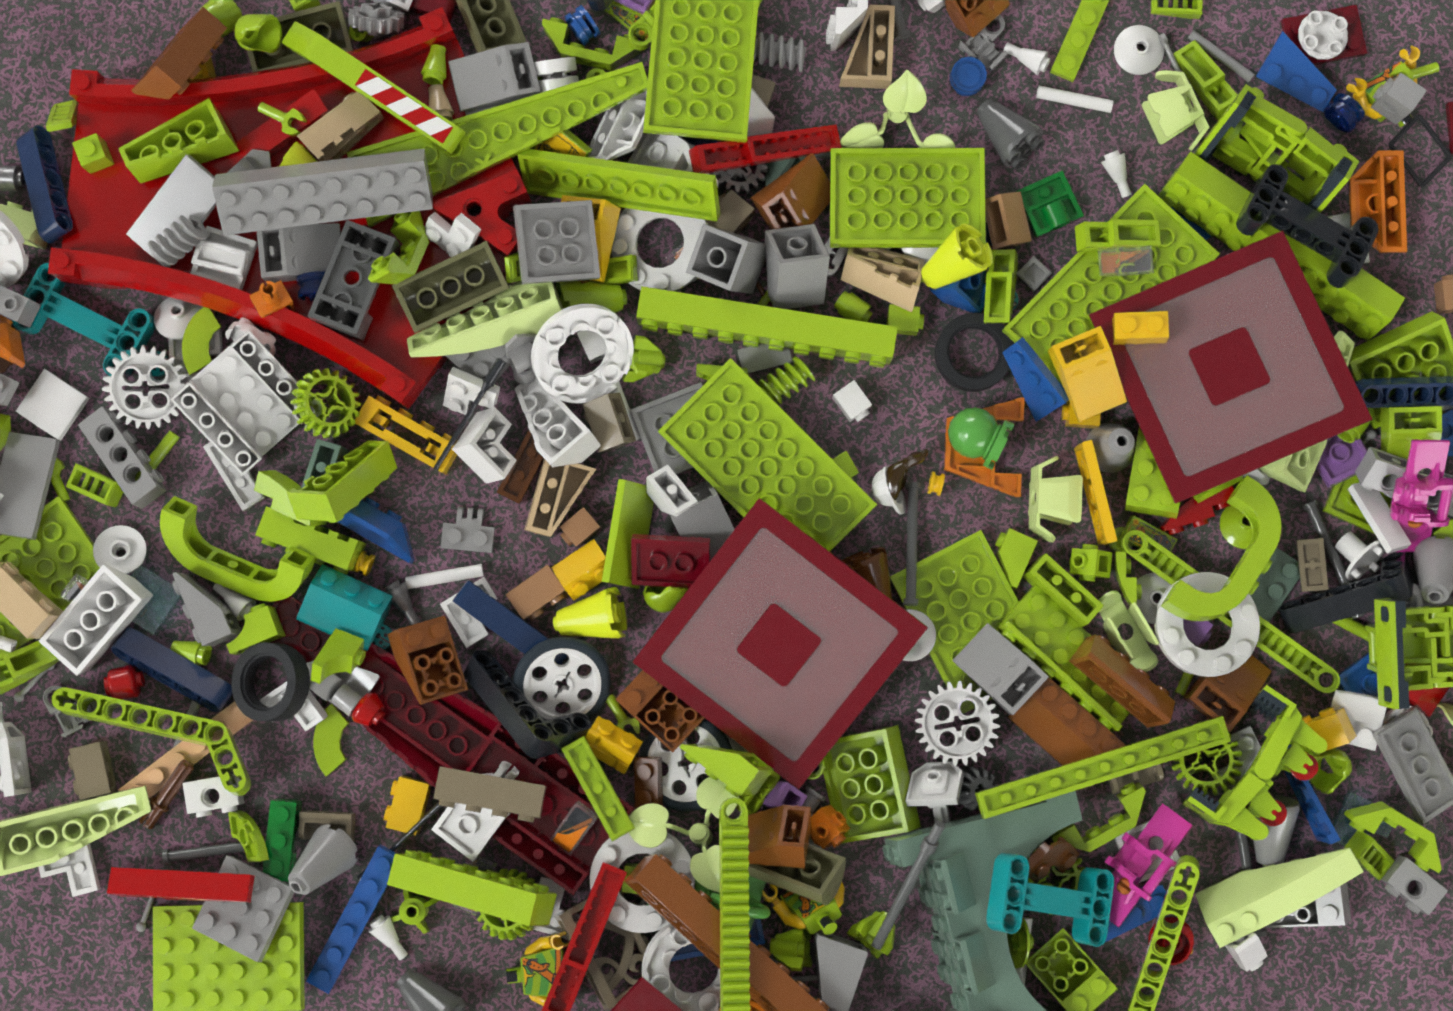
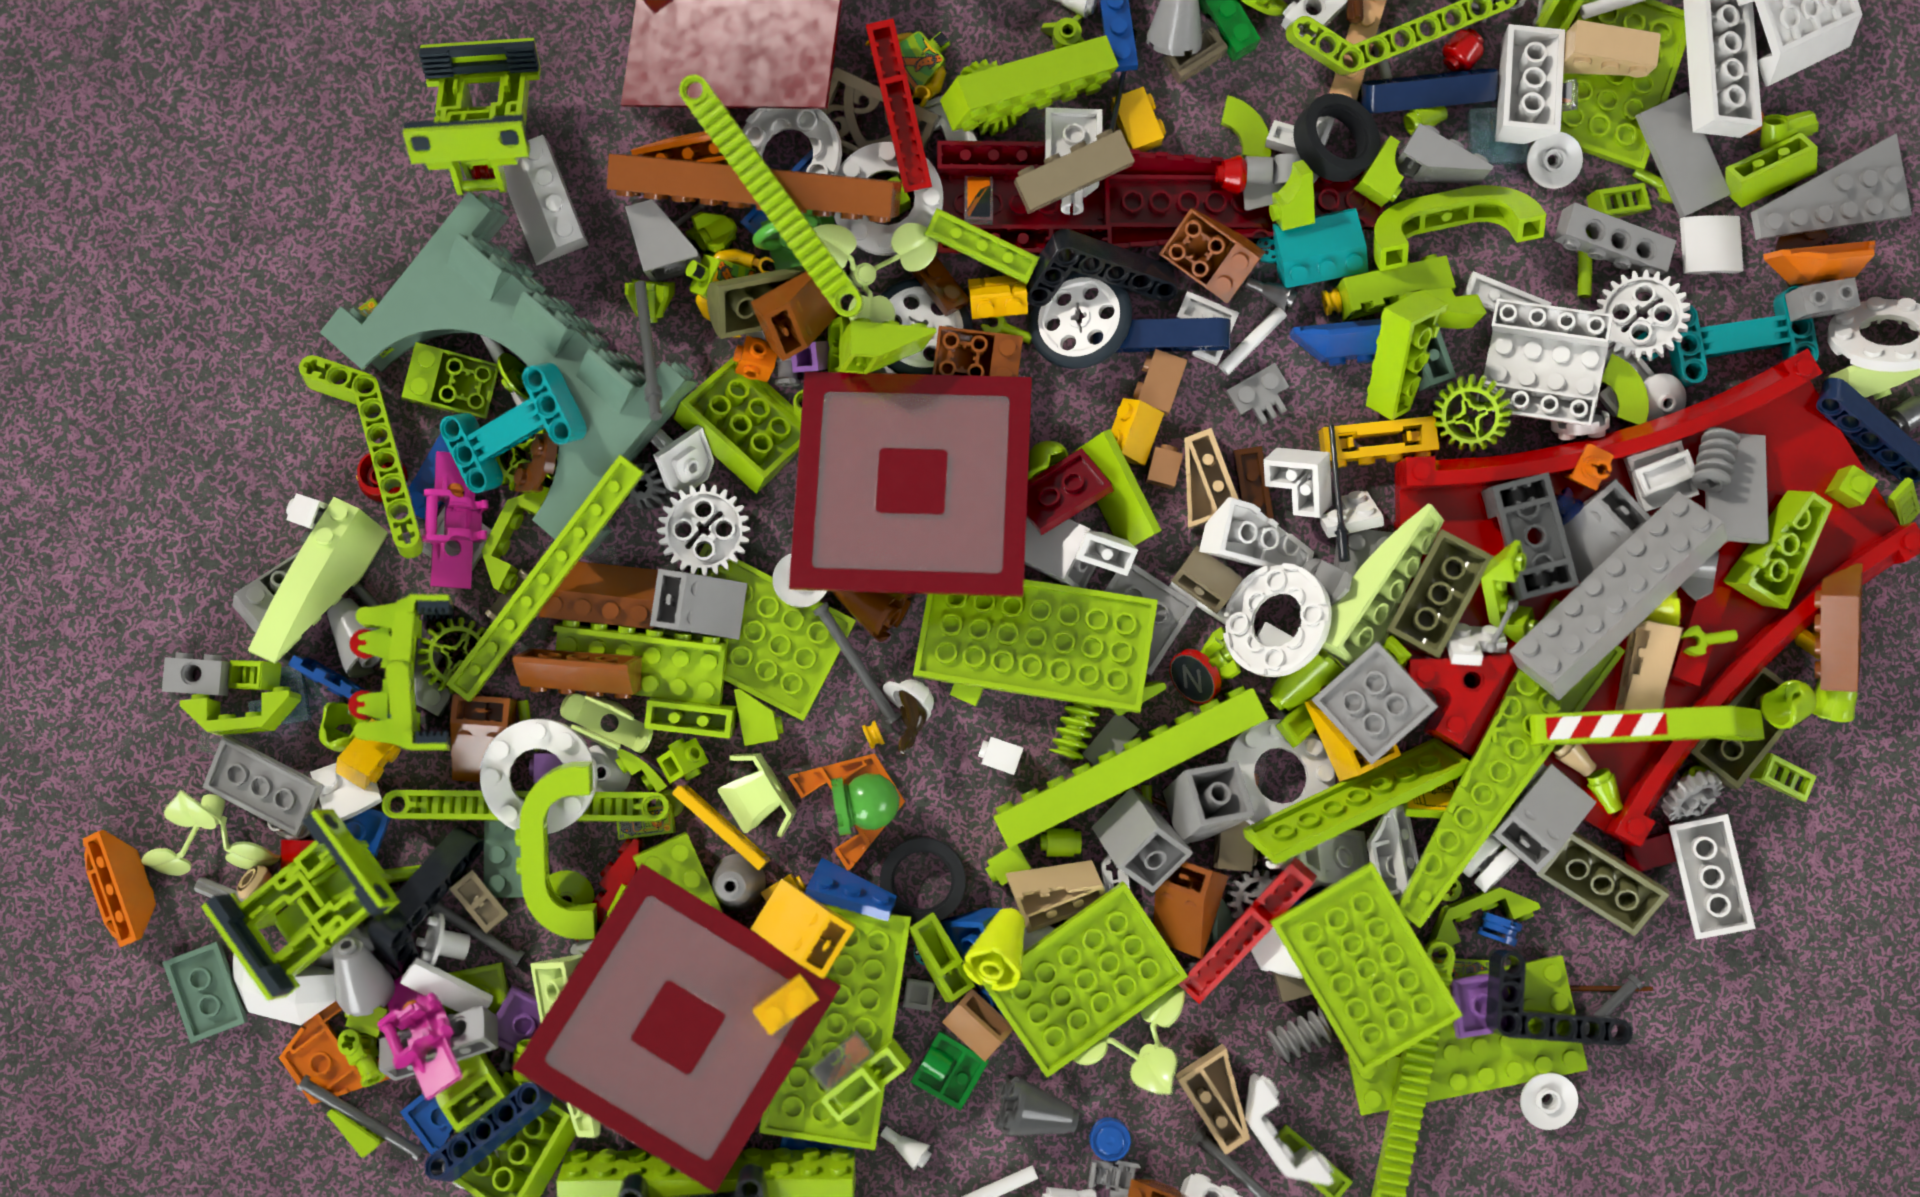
camera: 145 degrees right, 0 degrees up
(237, 602) = (1415, 187): white cone -> none
(443, 222) = (1512, 606): none -> light grey hinge
(593, 617) = (1094, 397): neon yellow cone -> none
(670, 357) = (1195, 676): none -> tile

